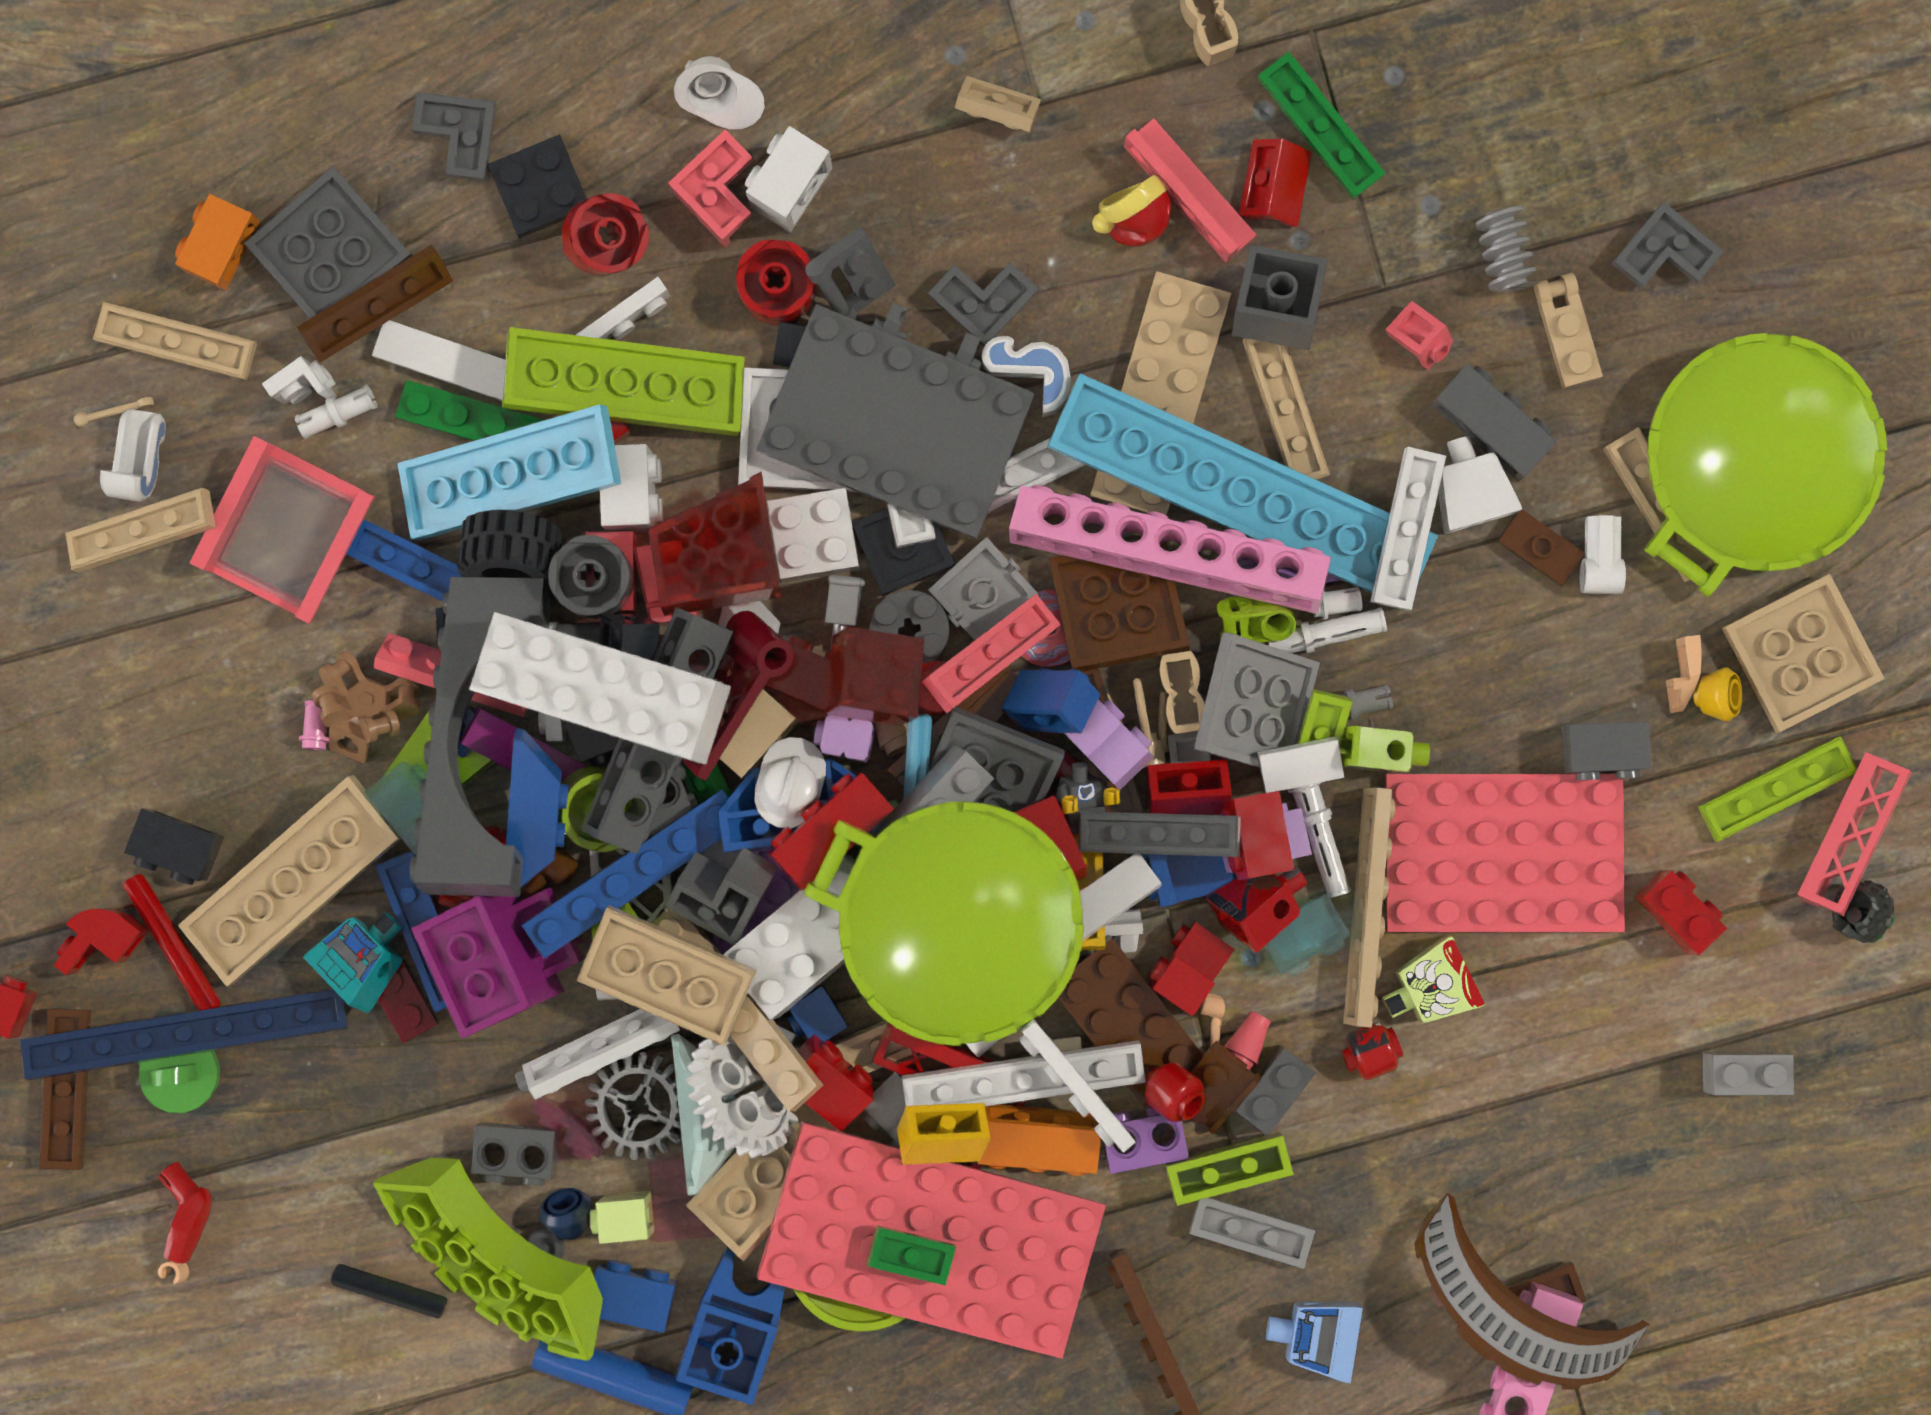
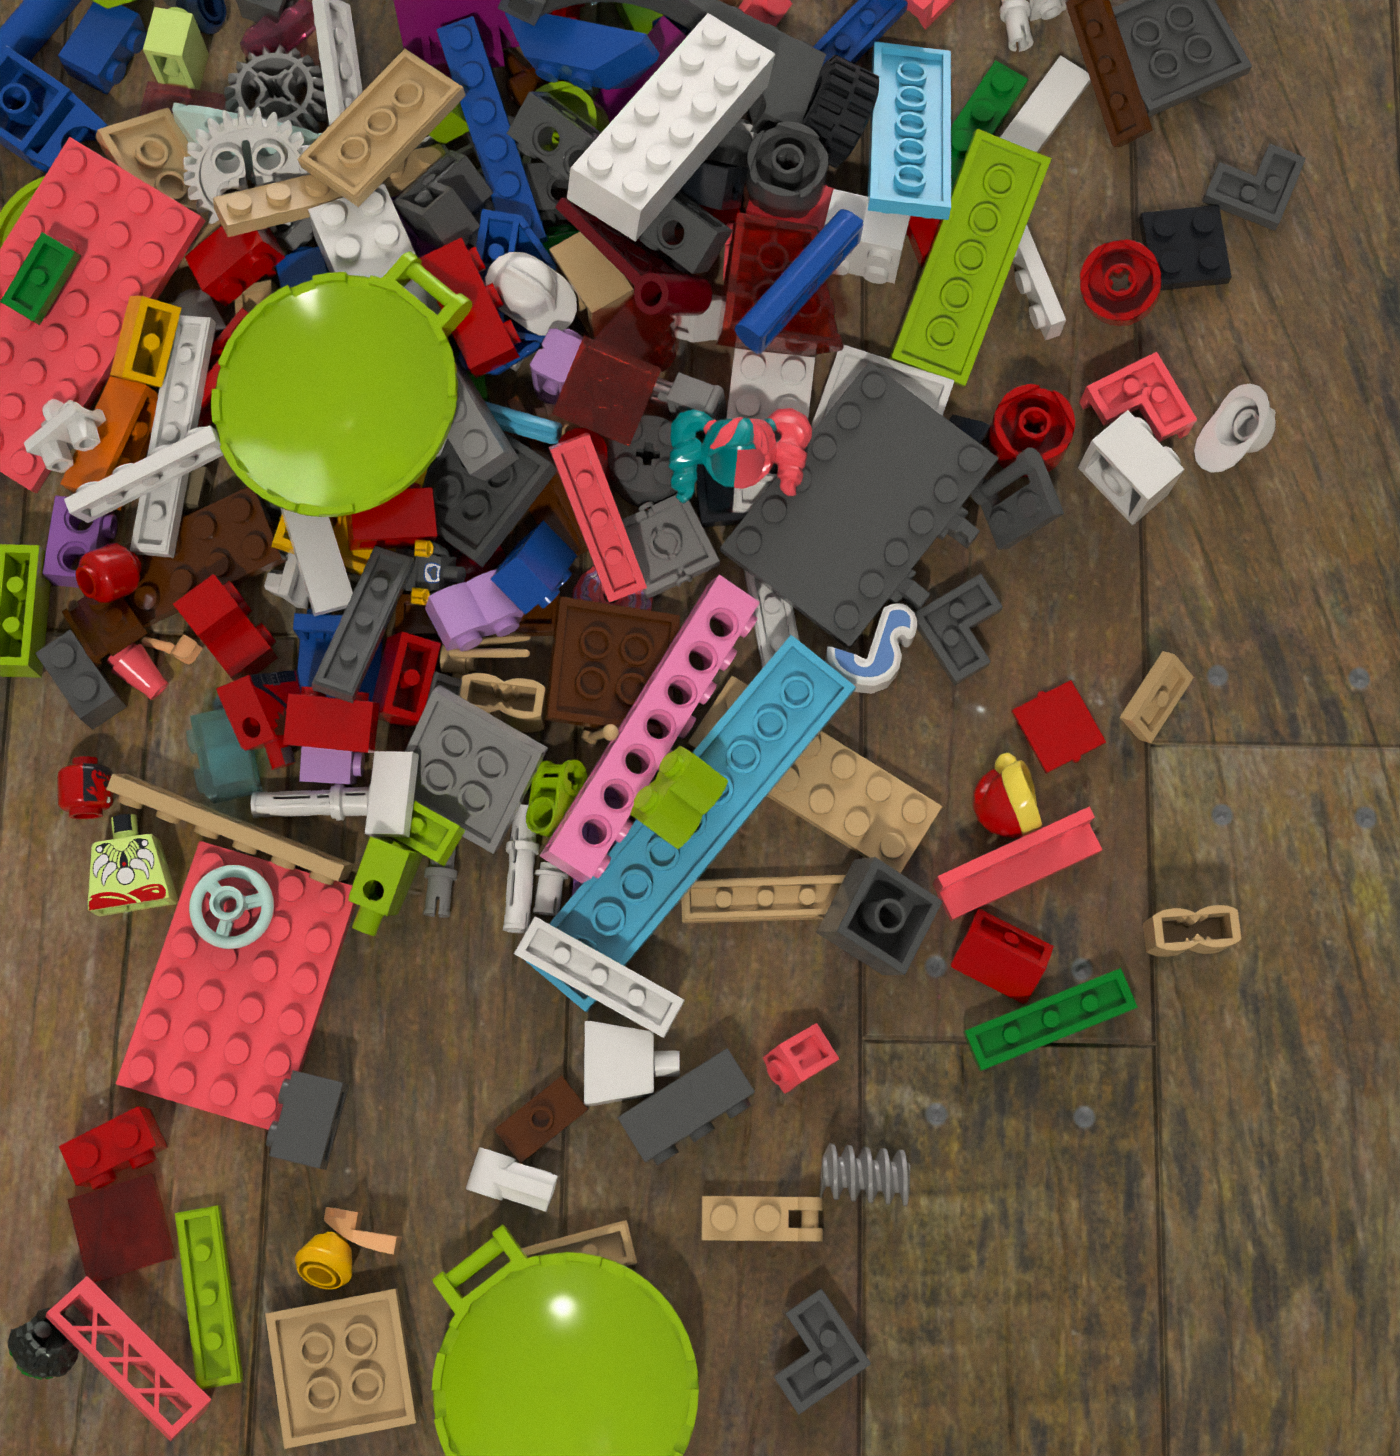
camera: 105 degrees right, 10 degrees down
(714, 526) = (800, 281): none -> blue brick
(890, 542) = (738, 450): none -> hair
(1047, 187) = (1058, 726): none -> red piece
(1047, 1184) = (64, 428): none -> white hips
(1191, 581) = (609, 732): none -> tan hinge
(1233, 501) = (678, 796): none -> lime brick
(1470, 878) = (218, 898): none -> light aqua piece
(1745, 884) = (121, 1228): none -> clear red plate

